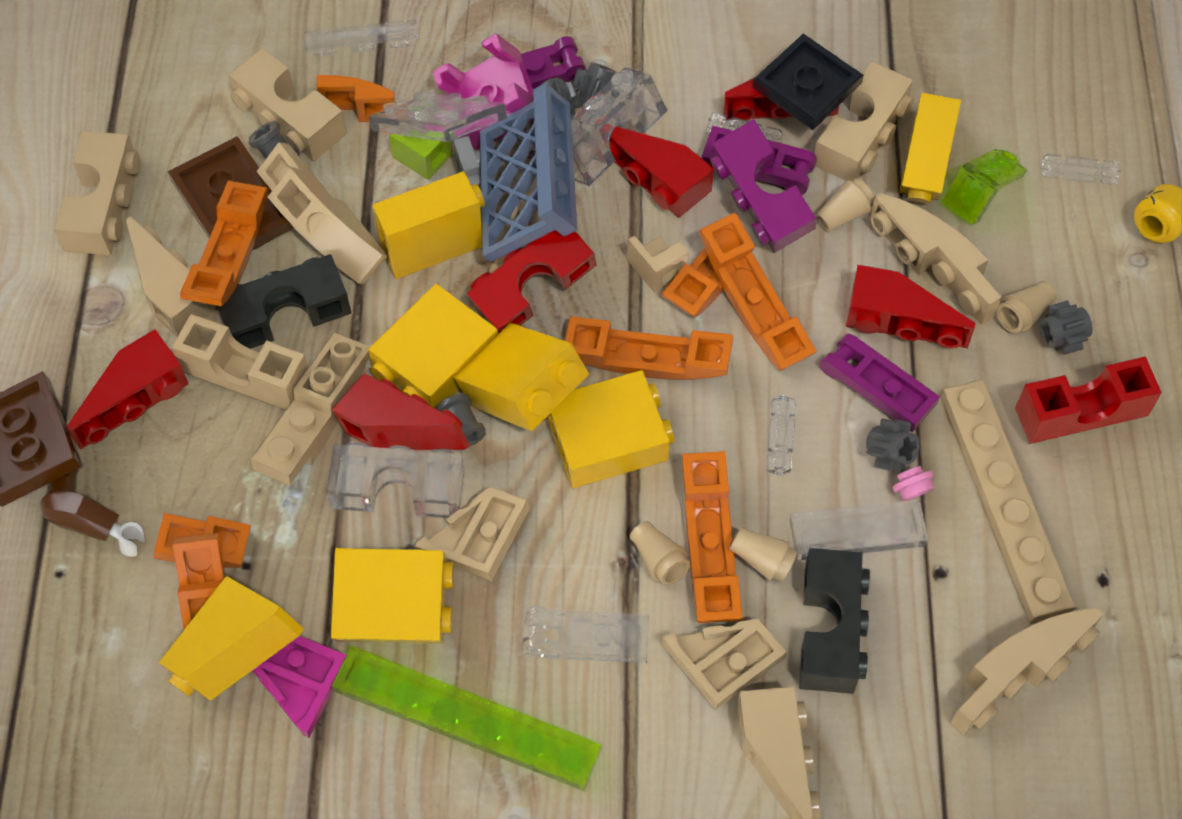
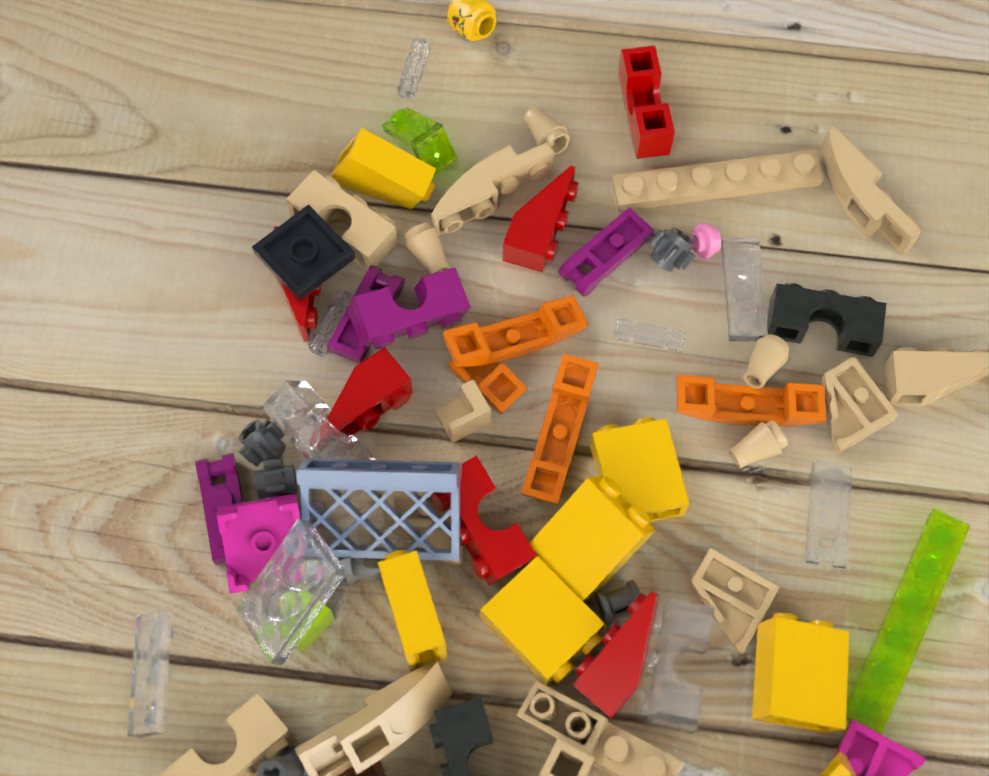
camera: 85 degrees left, 5 degrees up
(354, 94) = (236, 670): orange slope -> none
(1066, 327) = (572, 105): dark grey gear -> none

